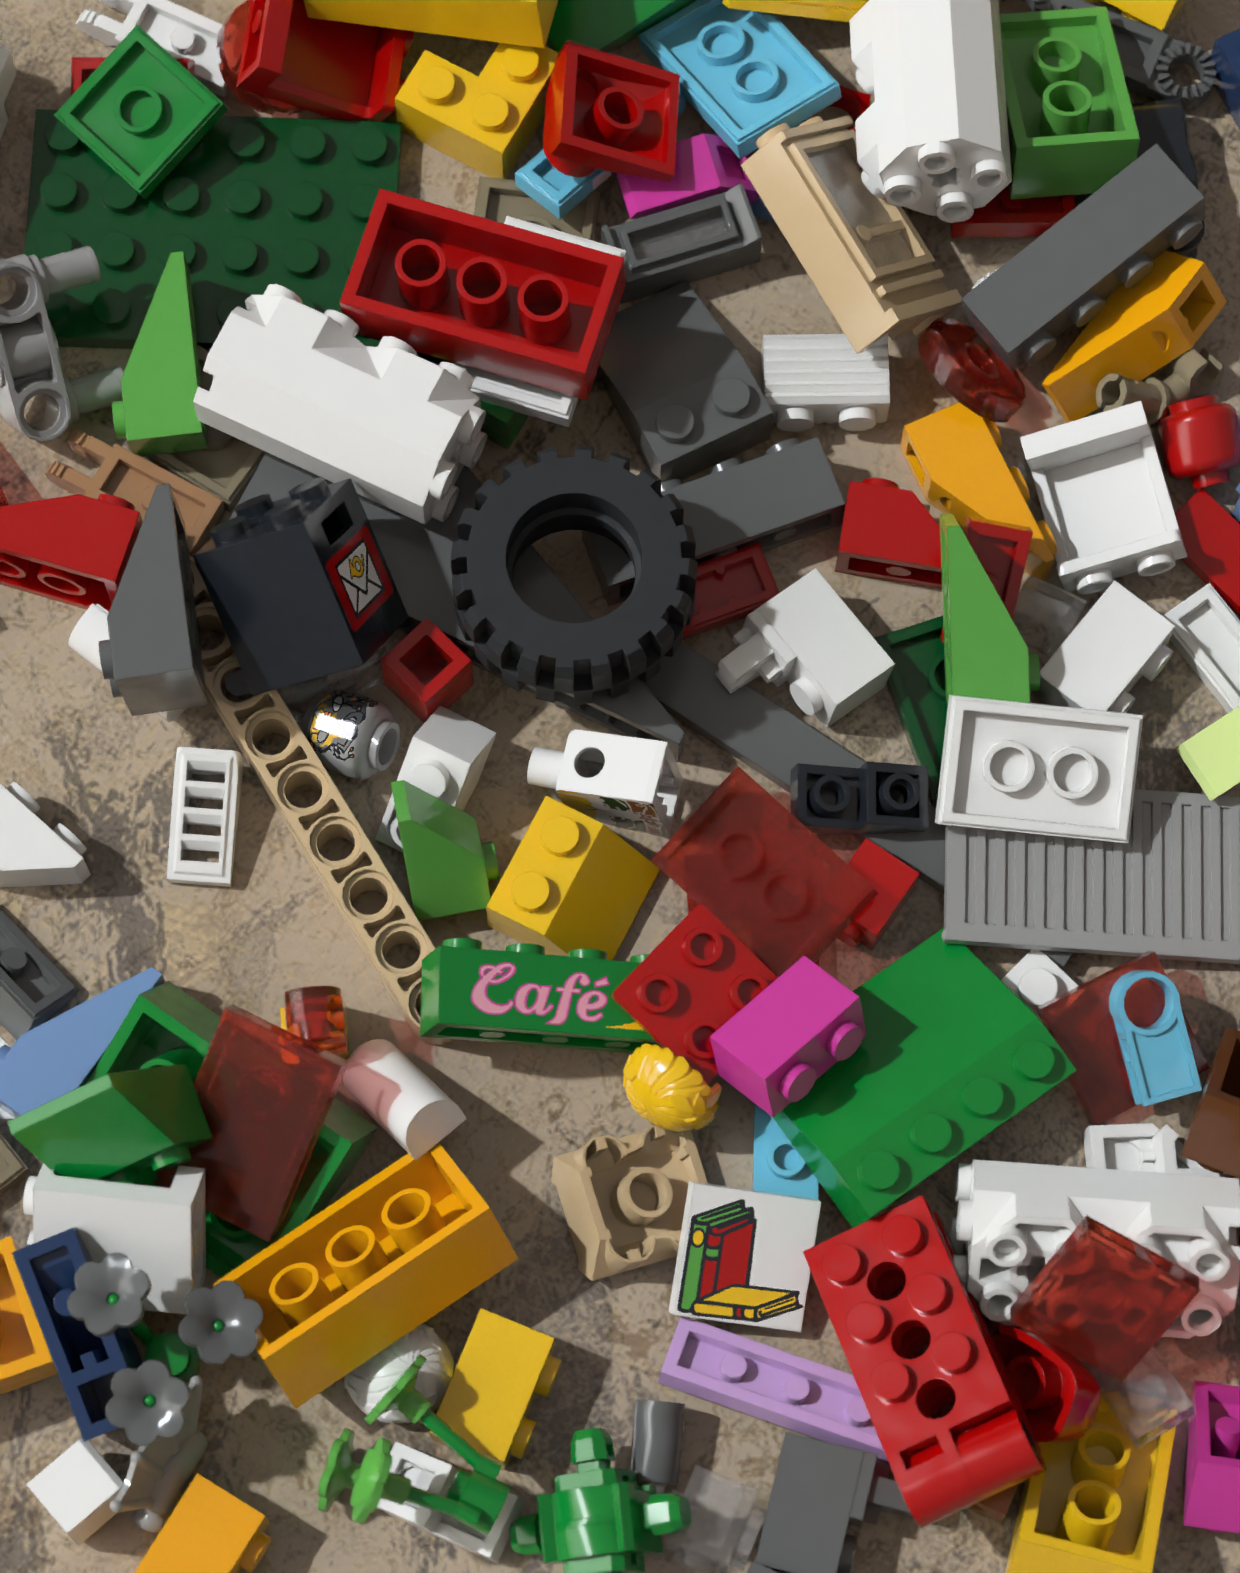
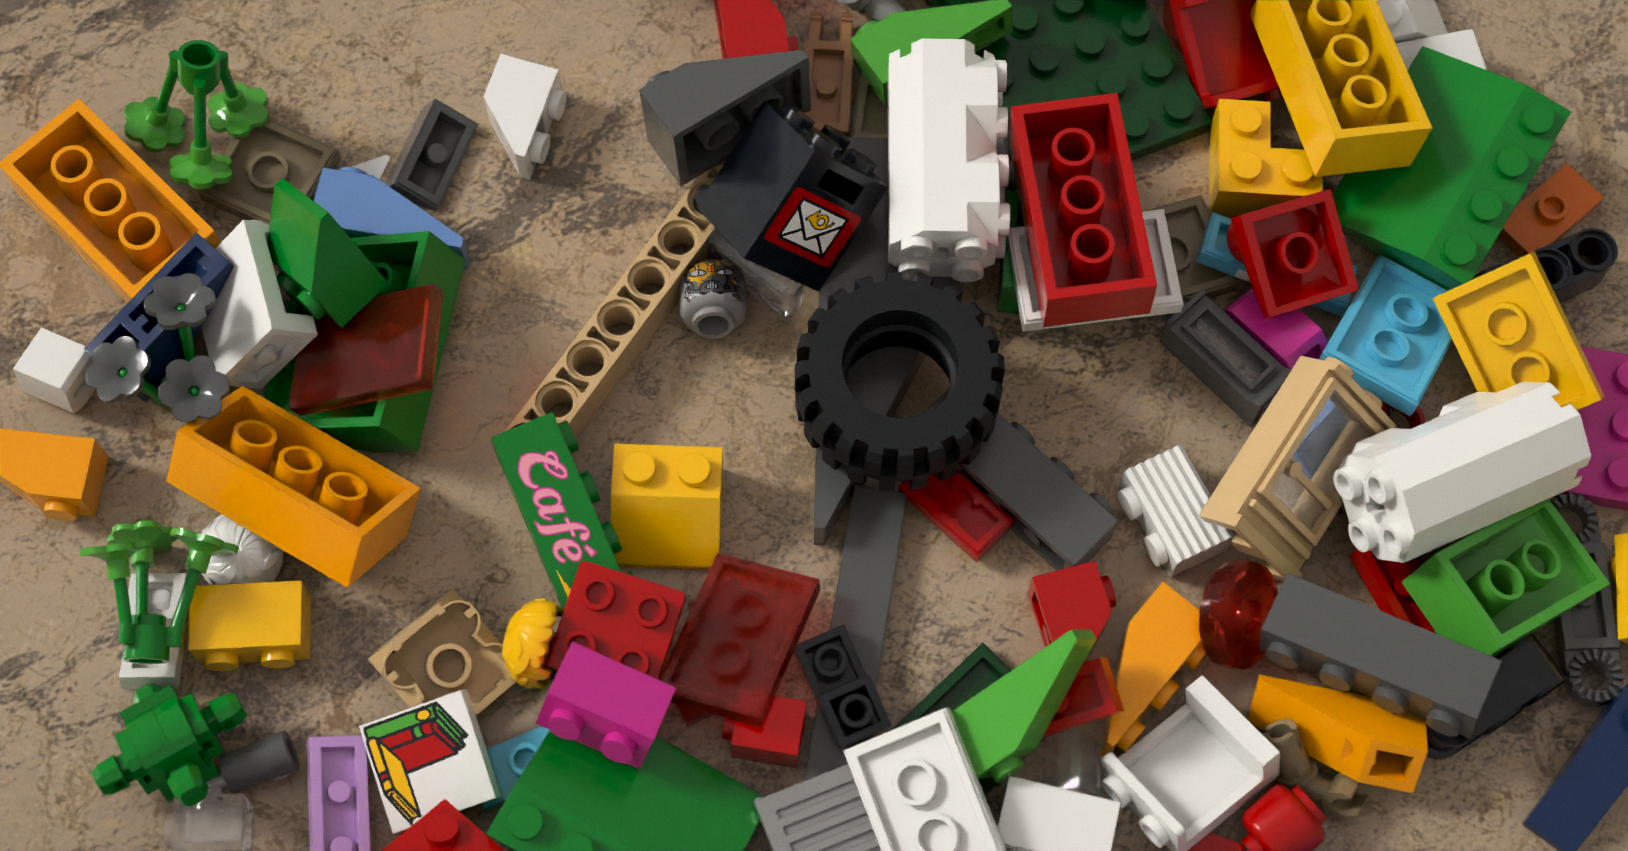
camera: 65 degrees right, 5 degrees down
(163, 1469) = (86, 415): light grey arm -> none
(204, 762) = (613, 208): white slope -> none
(318, 1017) = (470, 370): clear red leg -> none
(400, 1097) = (445, 454): white brick -> none
(427, 670) = (780, 322): red brick -> none
(442, 854) = (644, 392): bright green slope -> none
(443, 761) = (704, 373): white slope -> none
(613, 779) = (764, 497): white torso -> none
(681, 385) = (1111, 405): dark grey slope -> none
(813, 645) = (952, 593): white hinge -> none

